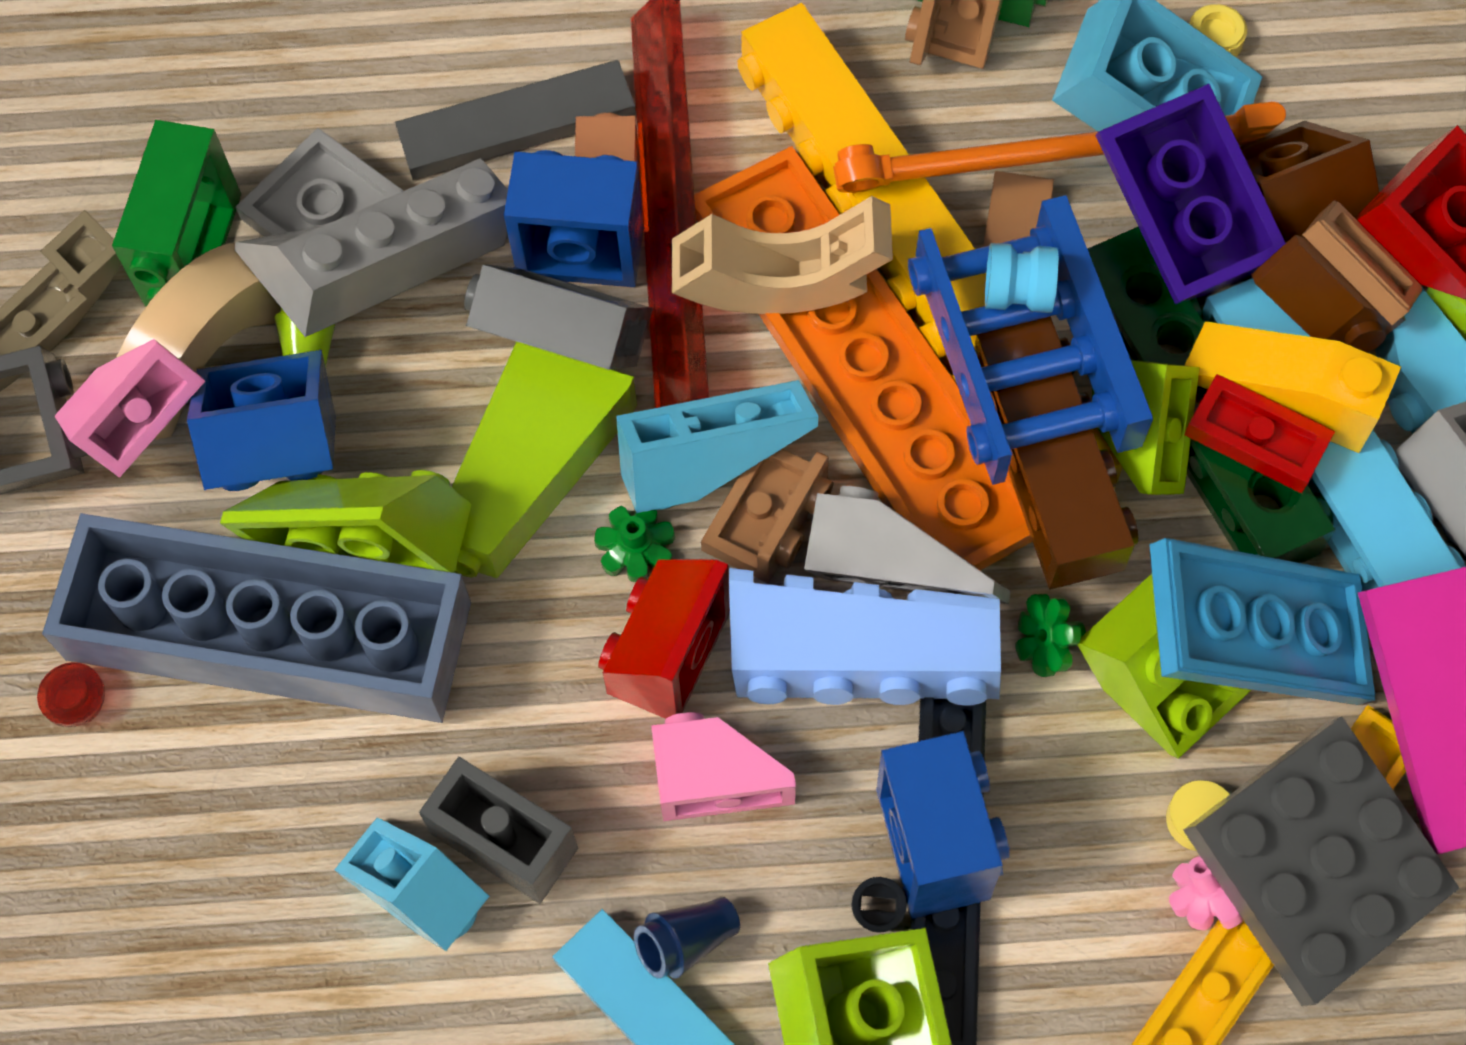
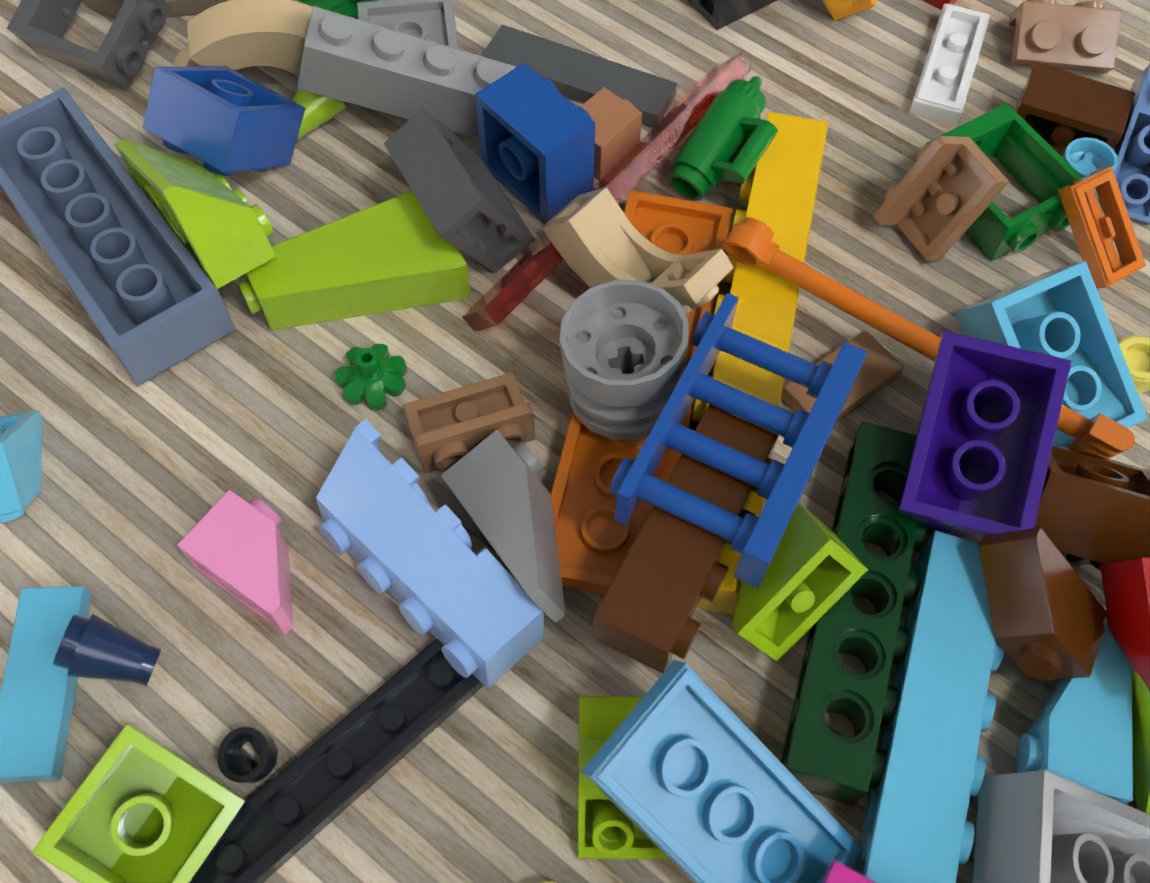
camera: 40 degrees right, 5 degrees down
(127, 404) = (141, 45): bright pink slope -> none
(499, 829) = (71, 475): dark grey brick -> none
(668, 635) = (298, 448): red slope -> none
(701, 444) = (467, 342): medium azure slope -> none
(719, 88) = (724, 141): none -> green piece
(864, 321) = (623, 356): none -> light grey wheel
(939, 823) = (318, 730): blue brick -> none
(1021, 278) = (766, 378): medium azure wheel -> none
(1047, 635) = (572, 675): green plant -> none
(1259, 433) = (870, 661): red plate -> none
(1303, 373) = (944, 648): yellow slope -> none
(1363, 262) = (1087, 599): medium nougat tile -> none

